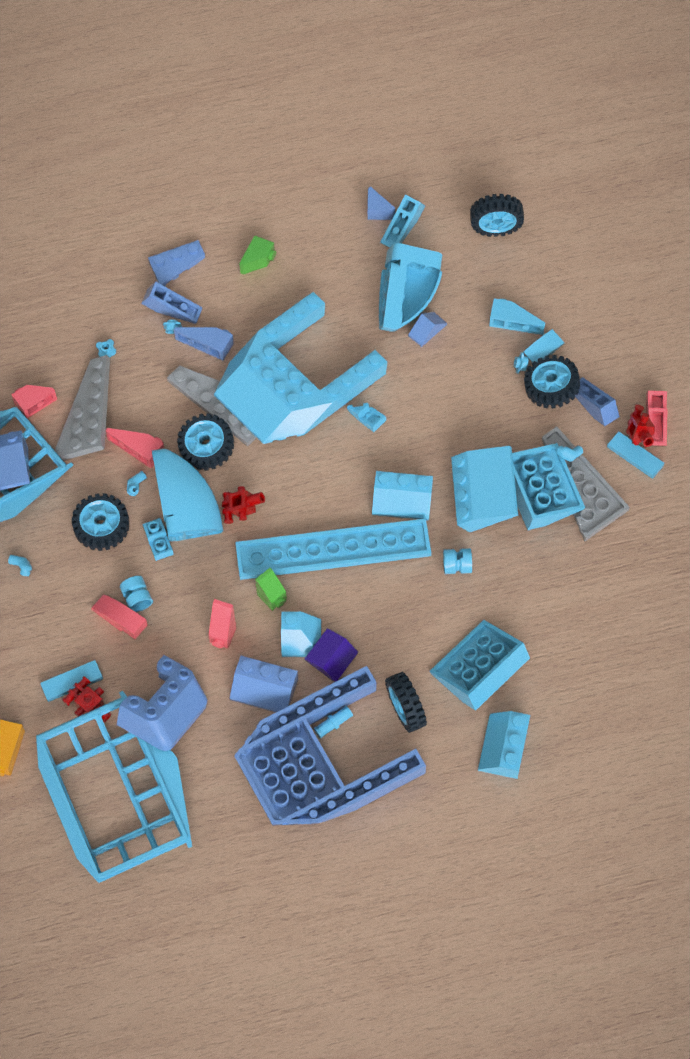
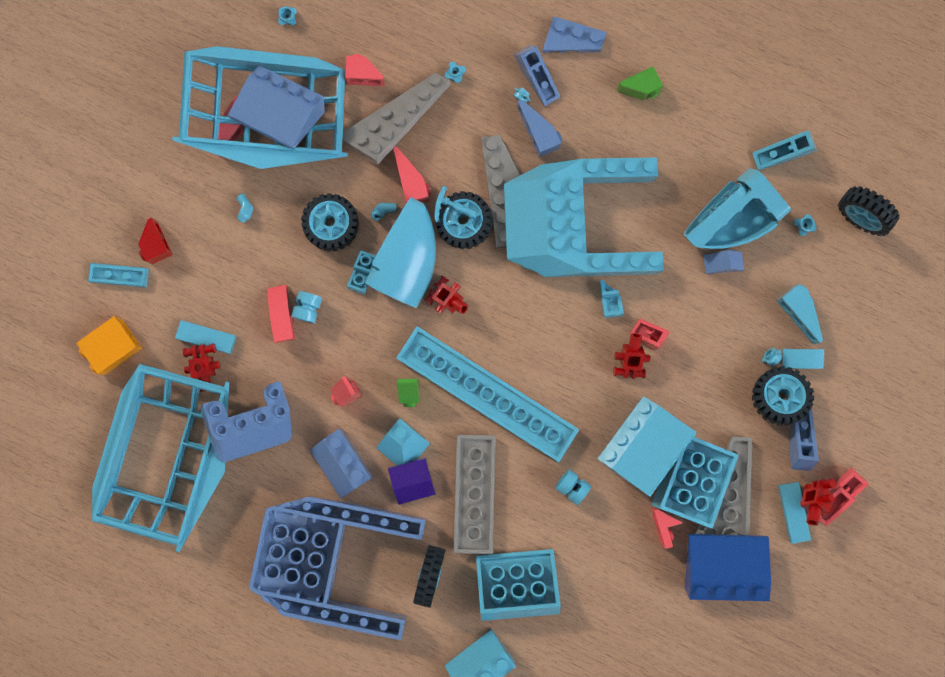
camera: 40 degrees right, 20 degrees up
(193, 432) = (456, 206): none -> medium azure piece
(333, 722) = (368, 536): medium azure pin -> none
(379, 207) = (777, 120): medium blue slope -> none
(388, 626) = (474, 494): none -> light grey plate
(402, 495) = (578, 394): medium azure slope -> none
(418, 415) = (652, 335): none -> coral slope
(418, 439) = (632, 358): none -> red piece
(463, 256) = (807, 219): none -> medium azure plate
(546, 534) = (662, 523): none -> coral slope
(568, 453) = (739, 474): medium azure arm -> none
(620, 524) = (728, 567): none -> blue slope

